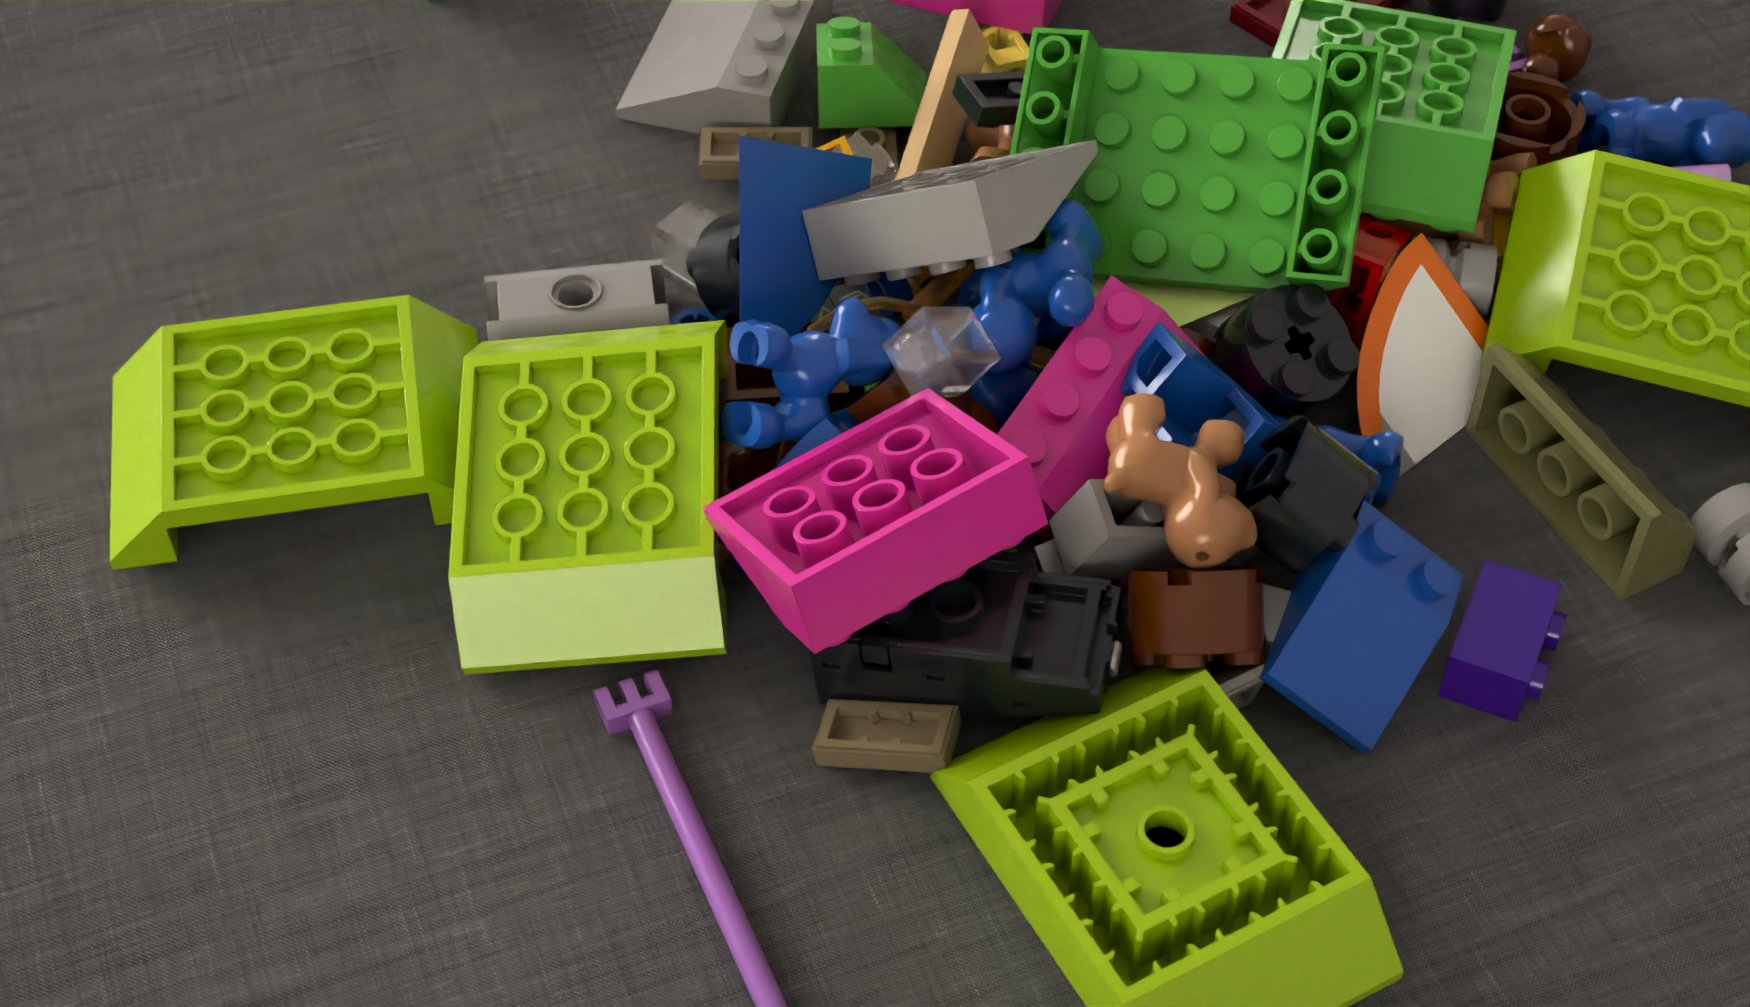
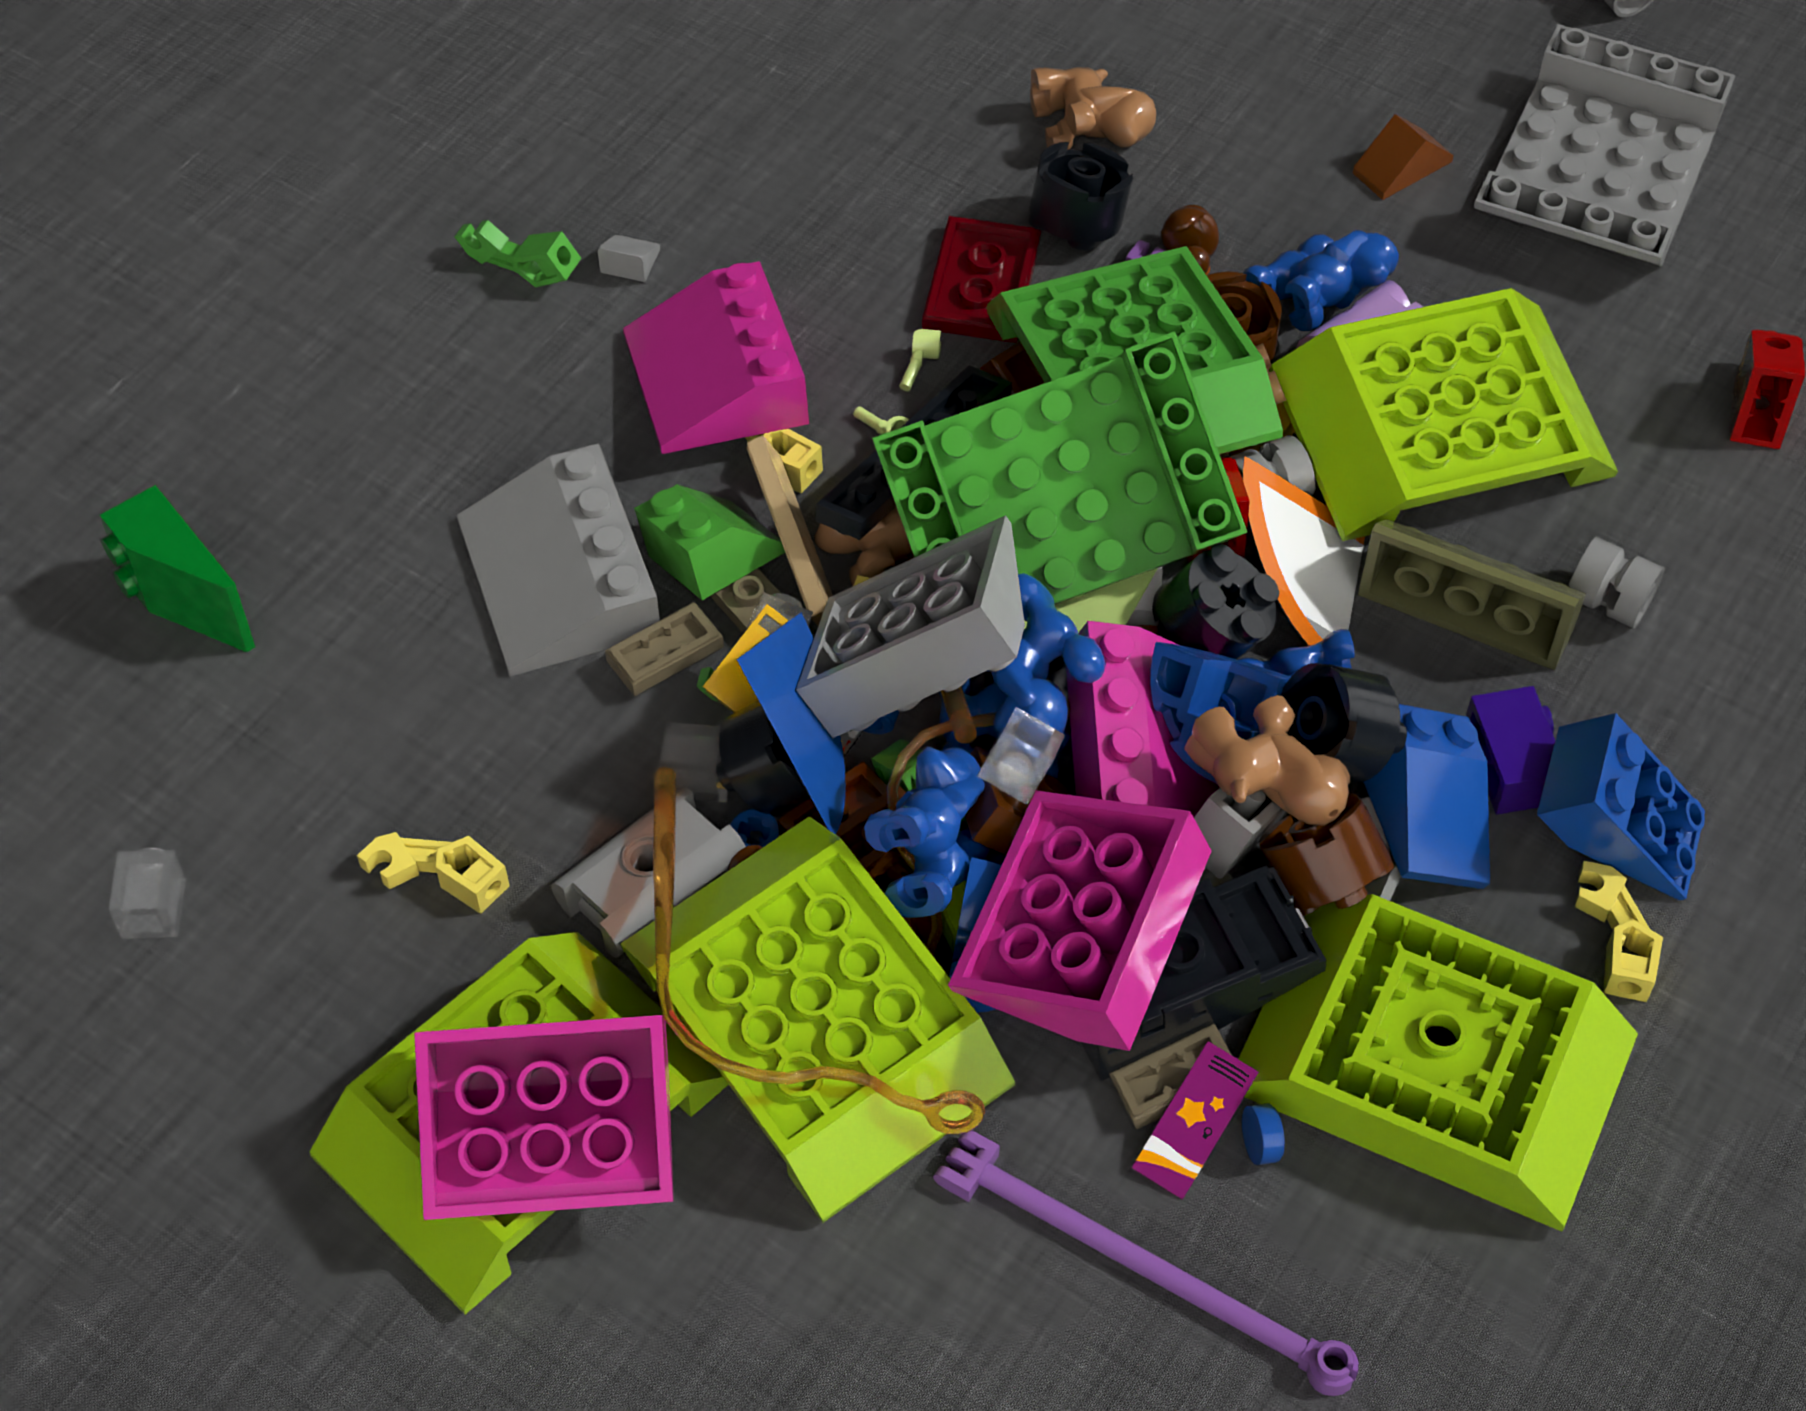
camera: 35 degrees left, 5 degrees up
(178, 126) = (147, 893): none -> clear brick
(277, 423) = (544, 1117): none -> dark pink slope
(430, 226) = (407, 857): none -> light yellow piece
(545, 307) = (663, 883): none -> clear orange piece
(868, 781) = (1195, 1120): none -> magenta sticker
(924, 833) = (1263, 1133): none -> blue tile
(1212, 29) = (925, 345): none -> yellowish green hand
(1440, 907) = (1625, 973): none -> light yellow piece
(1567, 746) = (1621, 805): none -> blue slope

